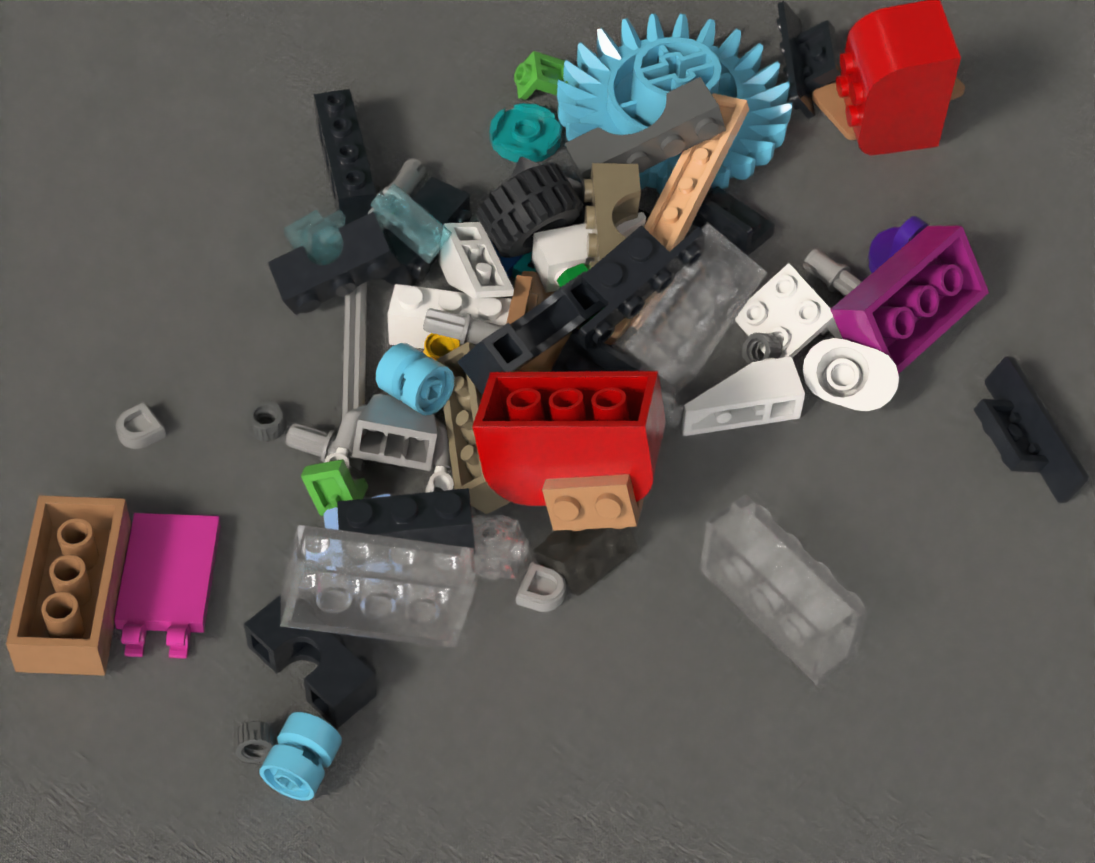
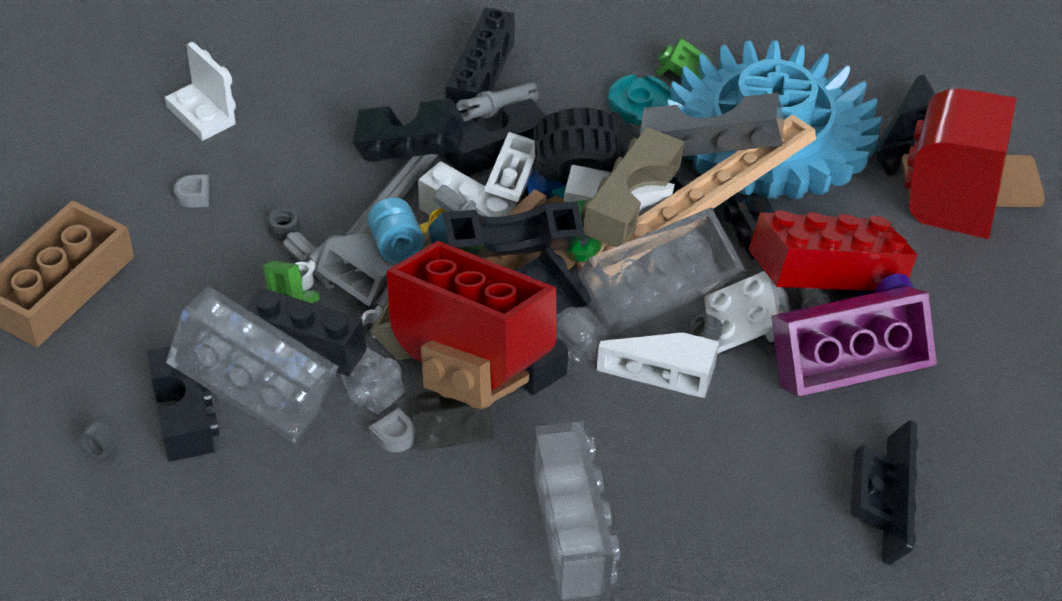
camera: 30 degrees right, 5 degrees down
(78, 315) = (207, 102): none -> white bracket
(166, 580) = (128, 303): dark pink tile -> none
(299, 760) = (130, 457): medium azure wheel -> none
(318, 235) = (409, 102): clear light blue bracket -> none
(410, 222) = (479, 119): clear light blue hinge -> none
(631, 276) = (610, 219): black bracket -> none
(832, 220) = (829, 250): none -> red brick
(850, 374) = (759, 376): white piece -> none

